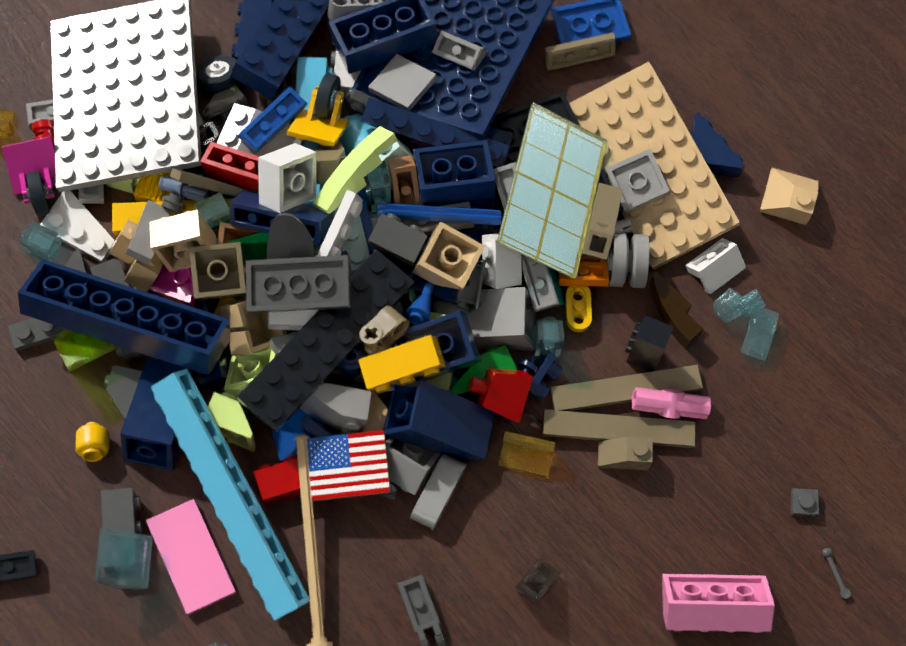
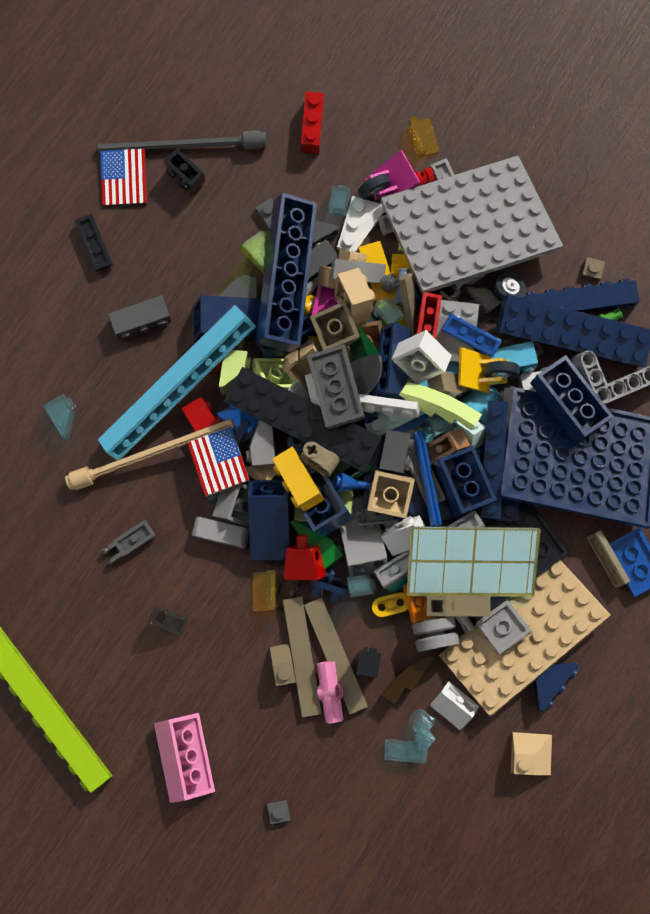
camera: 80 degrees right, 10 degrees up
(92, 442) = (198, 280): yellow head -> none
(123, 559) = (113, 323): clear light blue slope -> none
(190, 557) = (133, 370): bright pink tile -> none
(402, 83) = (531, 425): light grey tile -> none
(458, 50) = (572, 462): light grey slope -> none
(844, 593) = (215, 855): dark grey hinge -> none

